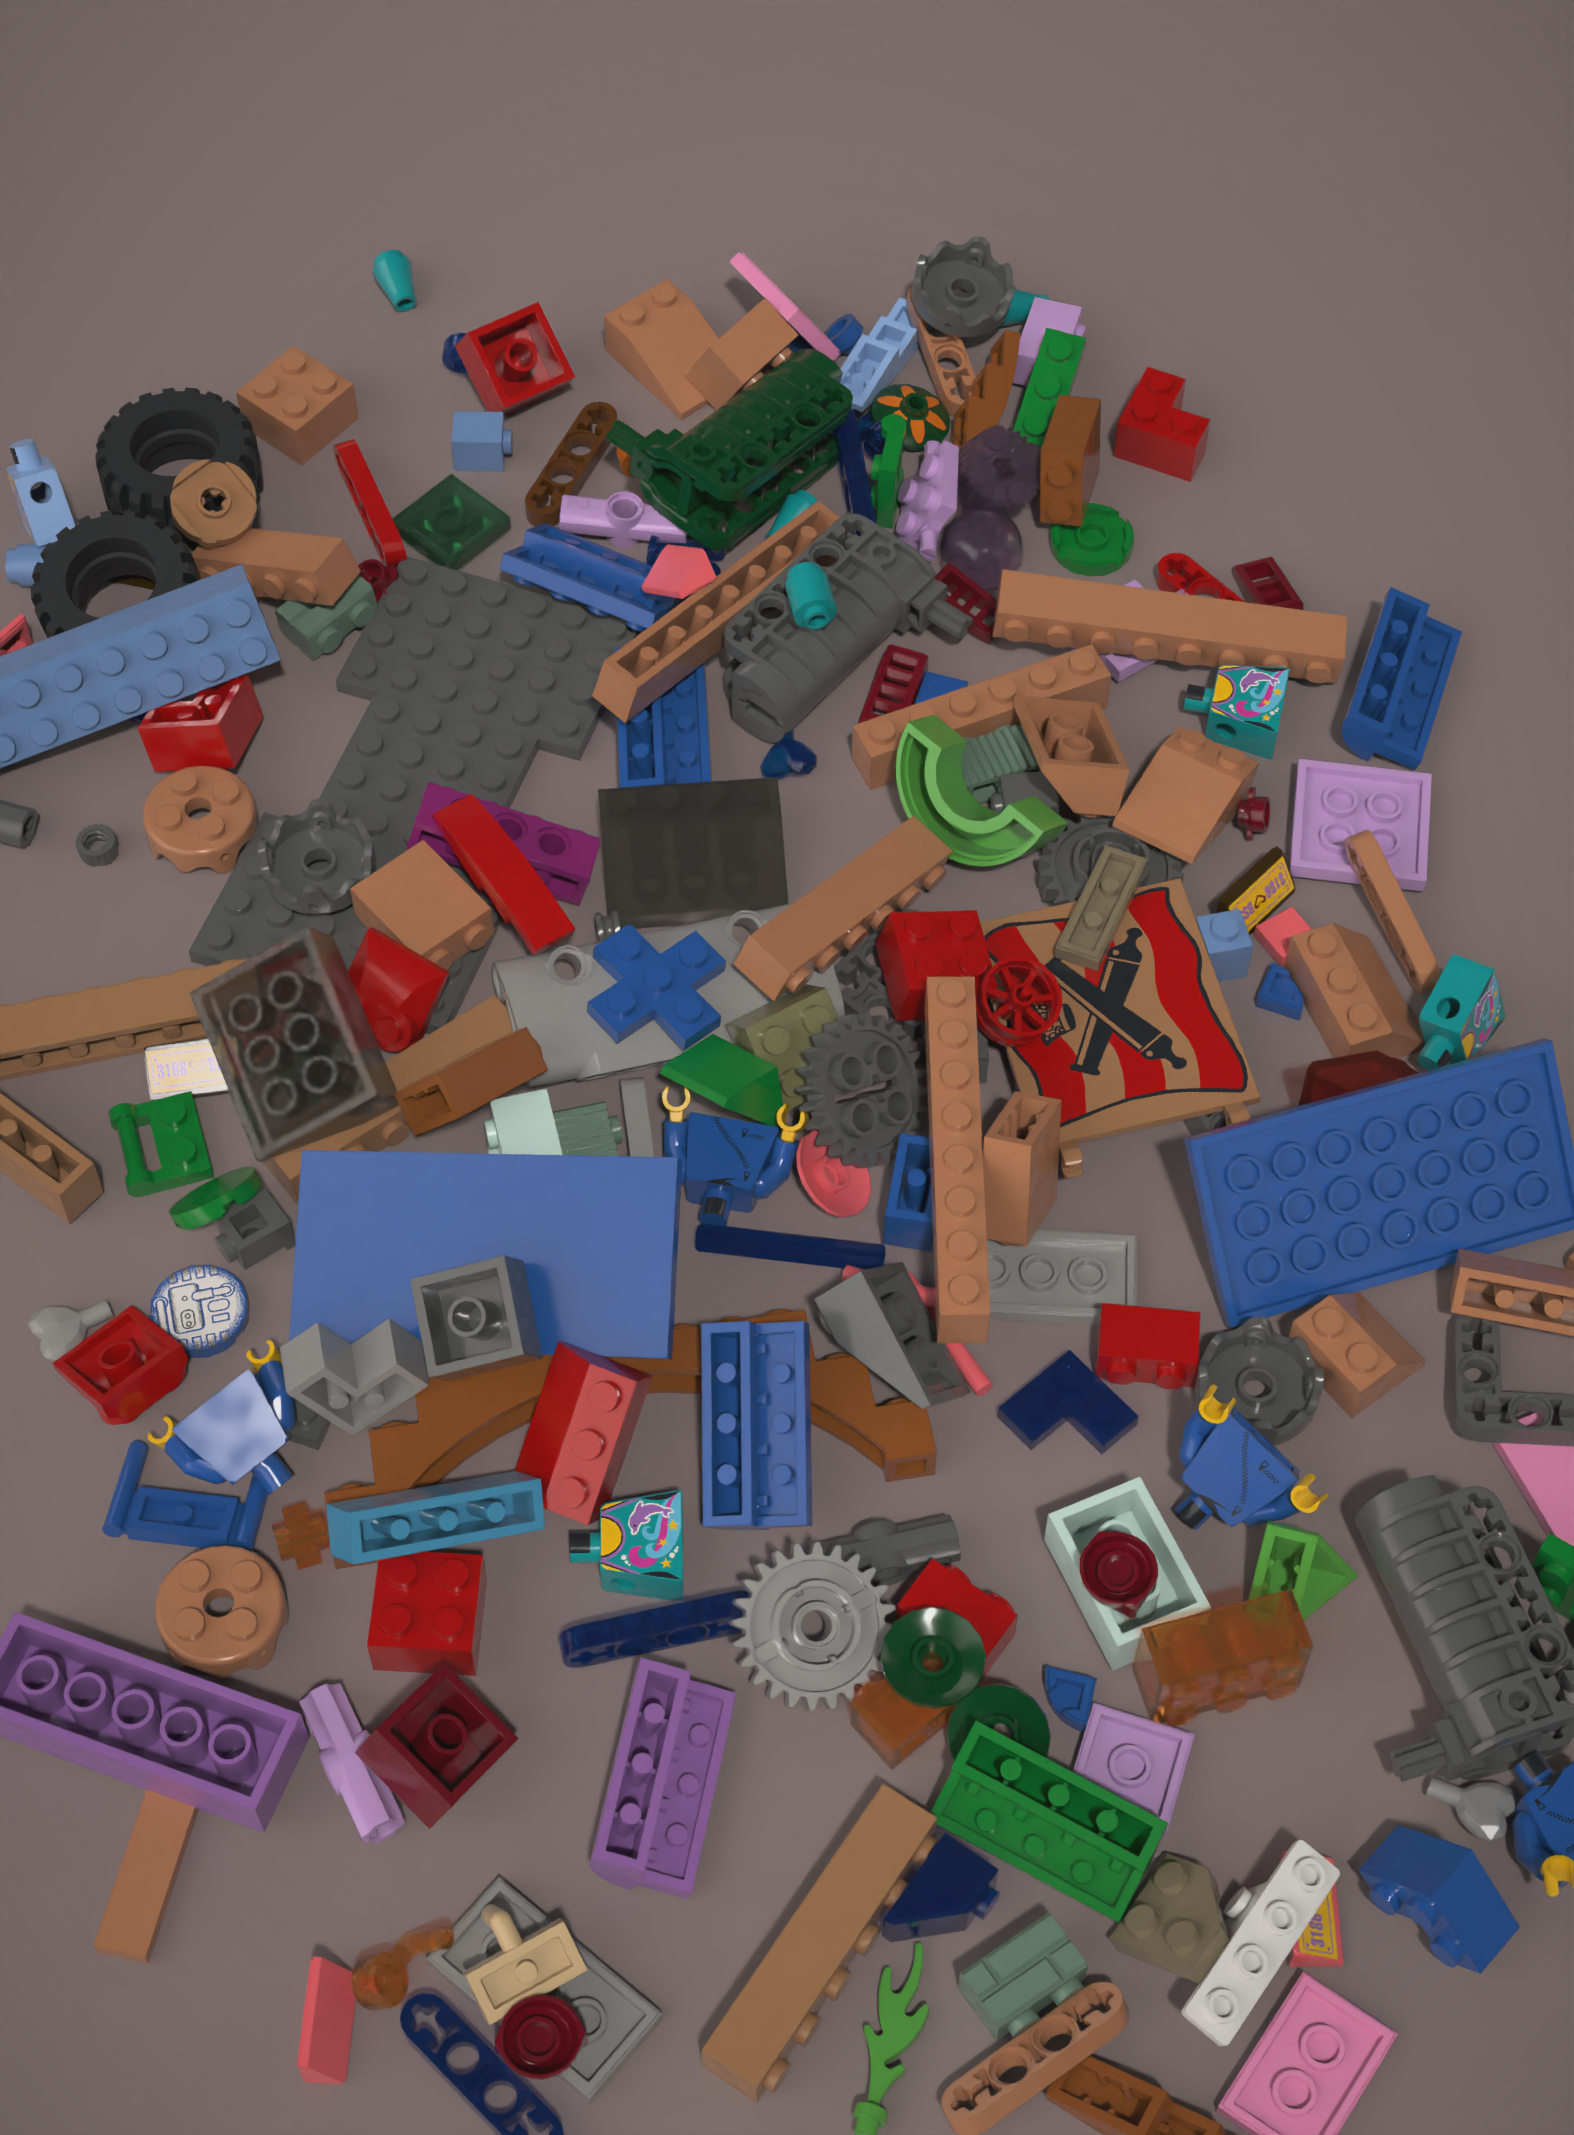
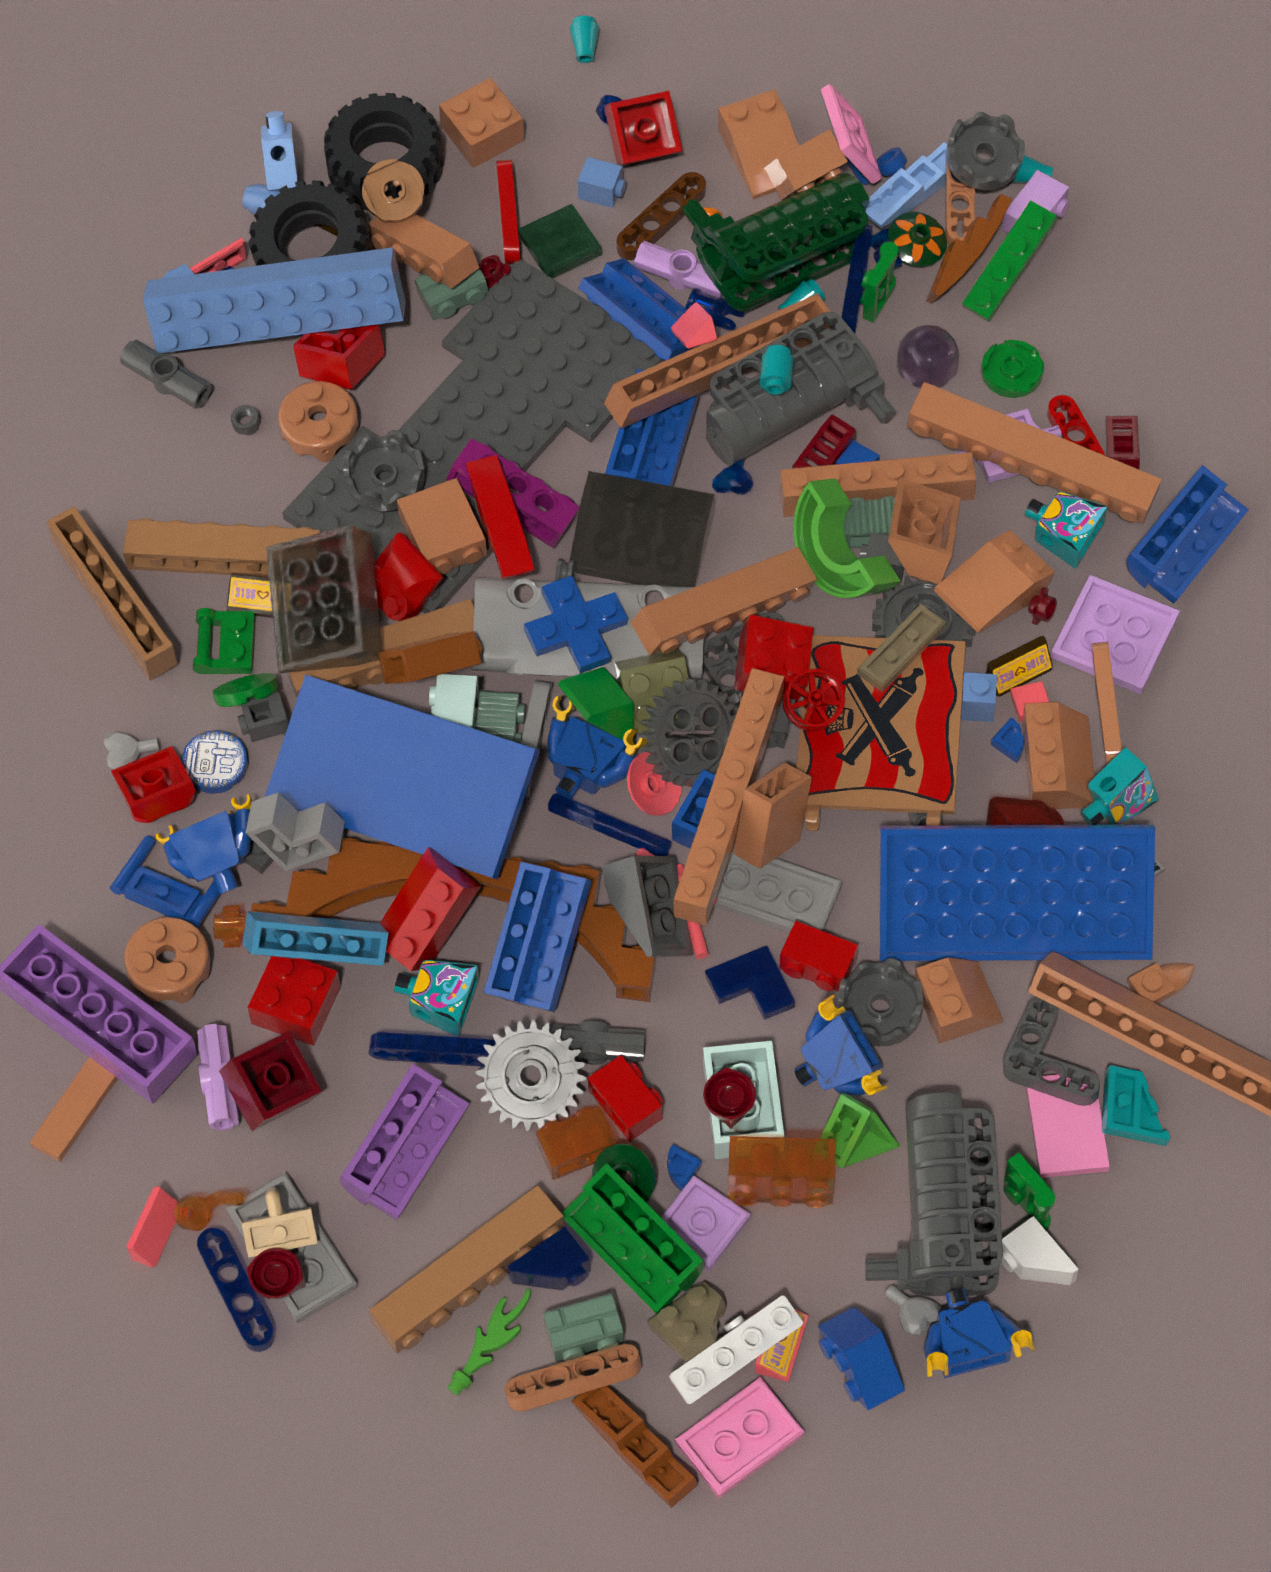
camera: 20 degrees right, 5 degrees up
(476, 1318) = (378, 818): dark grey brick -> none
(929, 498) = (899, 311): lavender plate -> none
(938, 1636) = (590, 1102): dark green dish -> none
(975, 596) = (903, 382): dark red slope -> none
(998, 470) = (969, 298): clear purple brick -> none
(1070, 460) = (1011, 307): dark orange brick -> none
(1157, 431) = (1090, 297): red brick -> none

